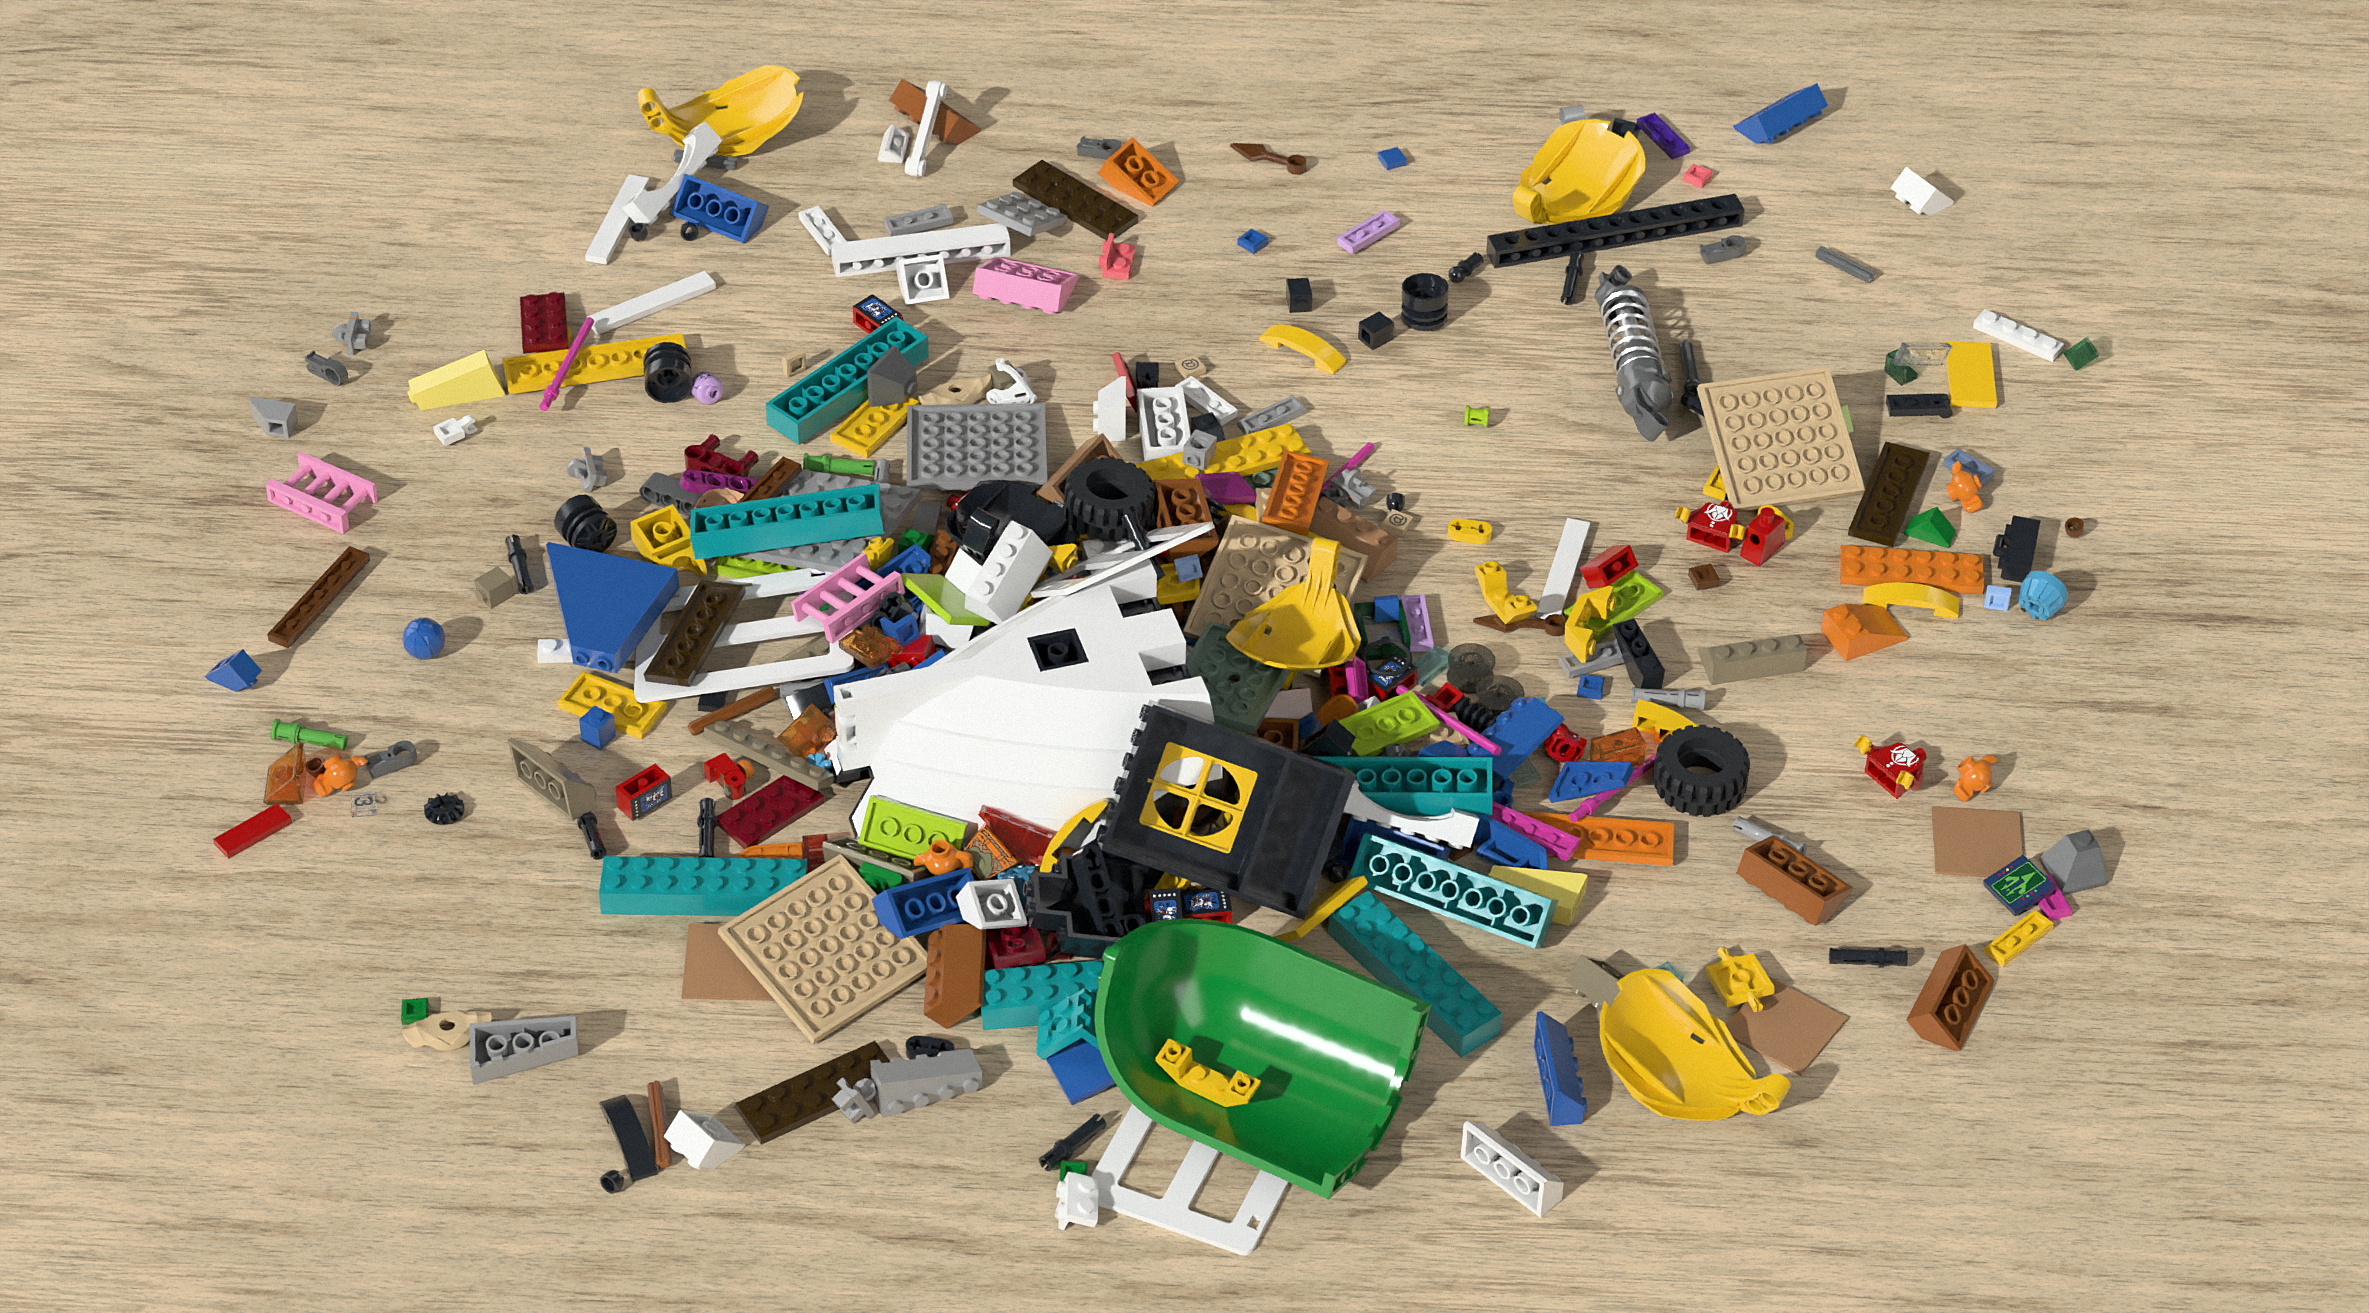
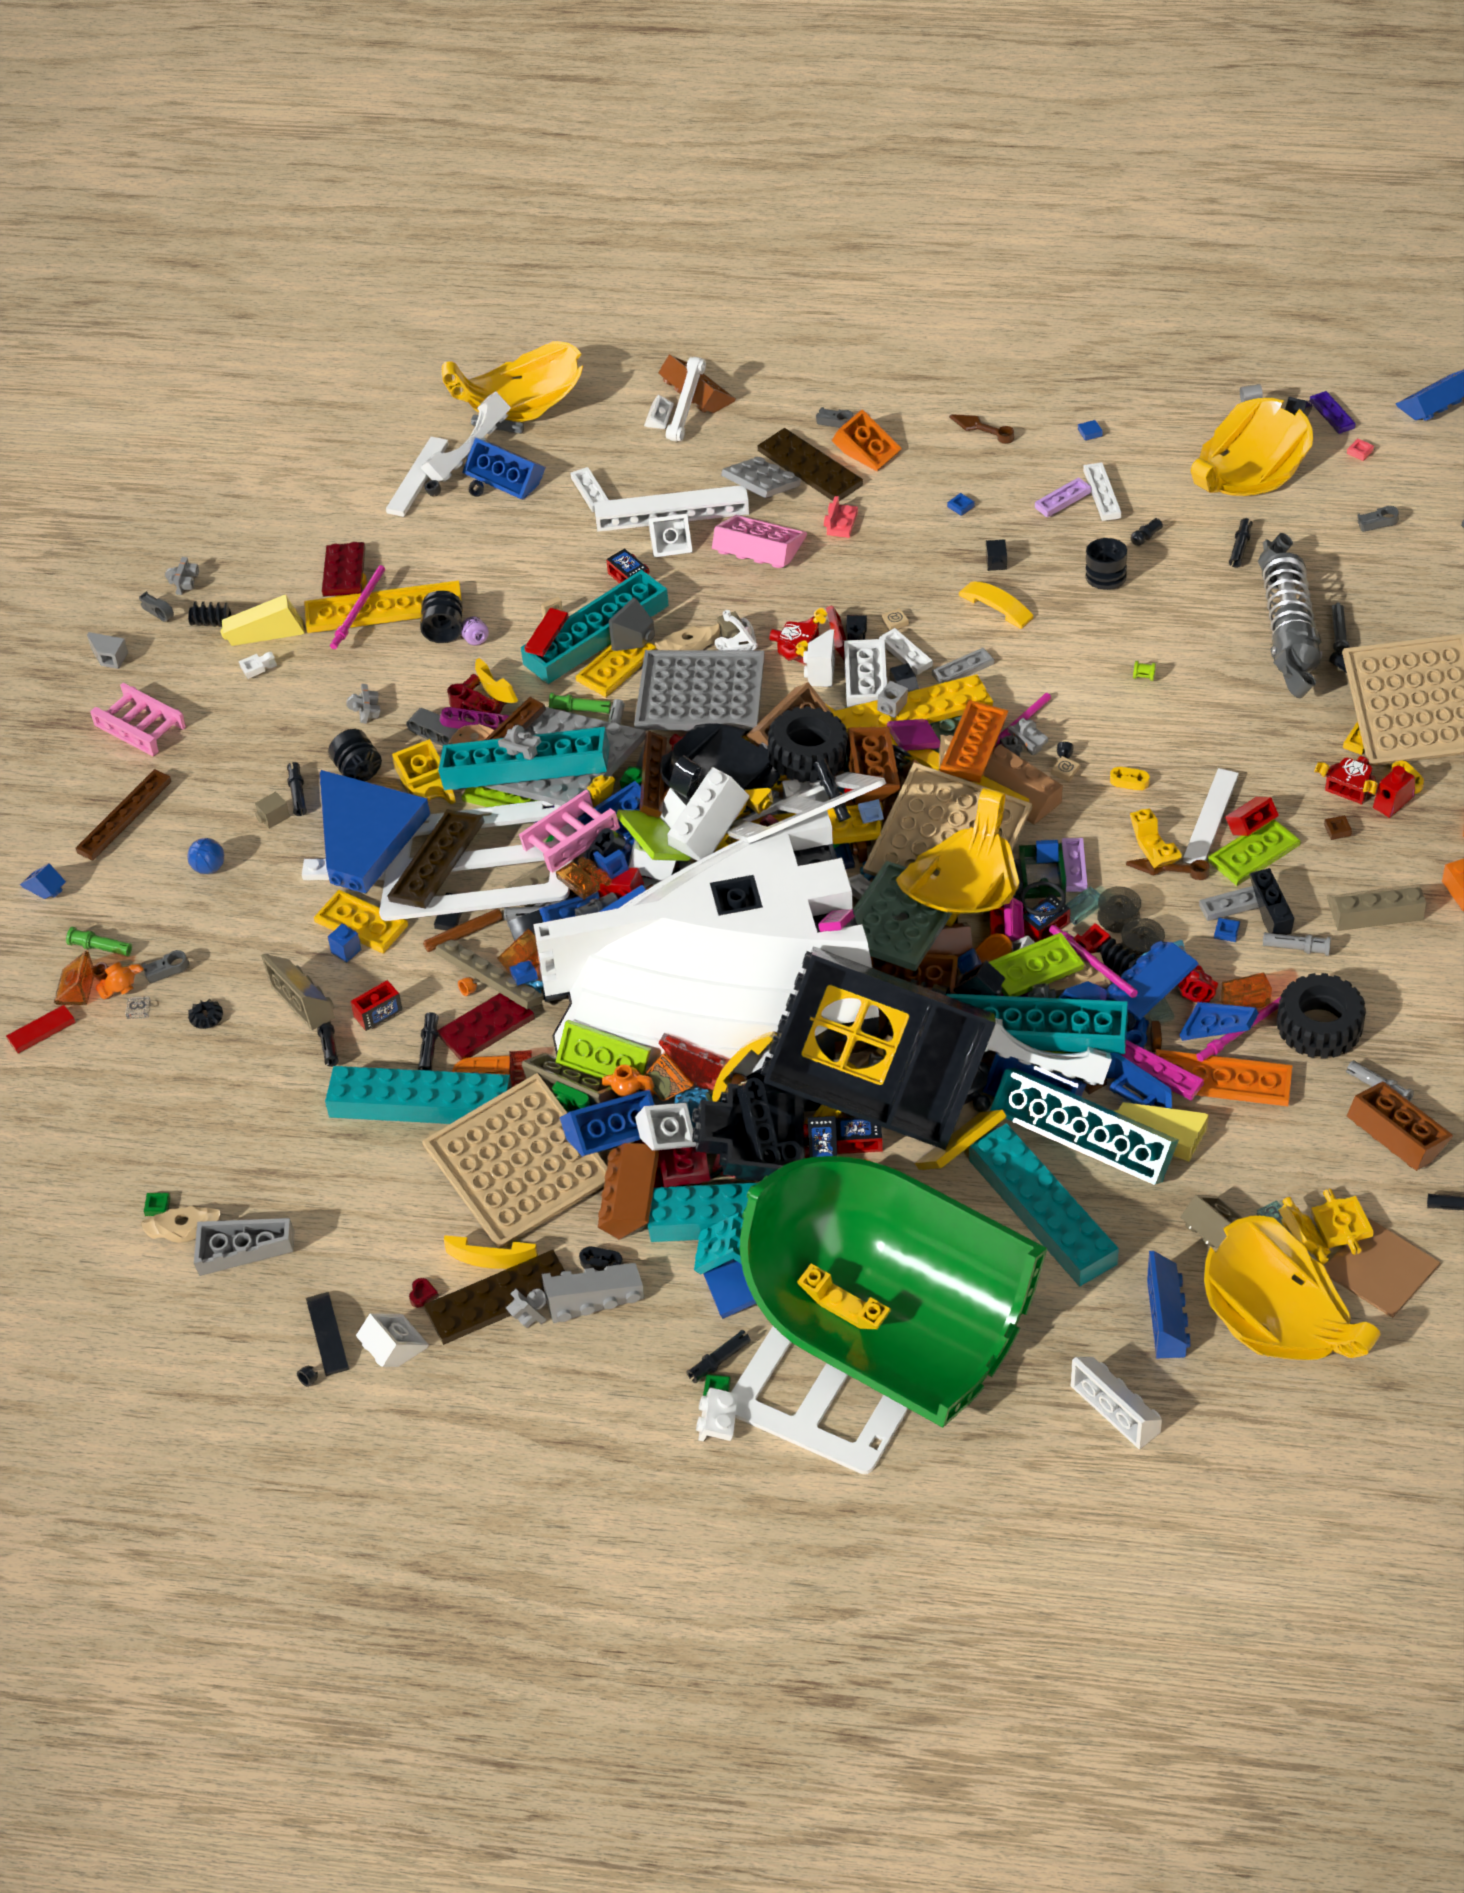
camera: 10 degrees right, 5 degrees up
(391, 375) = (208, 615): none -> black piece
(652, 302) = (437, 552): white tile -> none
(659, 1124) = (354, 1321): dark orange axle -> none
(715, 970) = (418, 1176): medium nougat piece -> none
(727, 775) = (451, 989): red leg -> none
(731, 1091) = (422, 1293): none -> dark red tile
(745, 450) = (498, 690): none -> yellow slope
(781, 500) = (519, 741): none -> light grey hips
(794, 385) = (546, 632): none -> red tile
(802, 1050) = (489, 1257): none -> yellow slope
(810, 751) = (523, 972): none -> blue plate
(918, 220) = (672, 481): light grey plate -> none
(935, 536) = (652, 783): none -> reddish brown plate
(1082, 387) = (796, 635): none -> torso
(1171, 673) = (836, 920): none -> dark pink tile
(1376, 330) = (1061, 589): black brick -> none
(1412, 225) = (1102, 491): none -> white plate
(1522, 796) = (1155, 1035): none -> reddish brown tile
(1593, 604) = (1235, 852): yellow slope -> none
(1615, 230) = (1282, 499): black brick -> none
(1658, 720) = (1285, 964): yellow slope -> none
(1700, 987) = (1303, 1230): none -> yellow plate

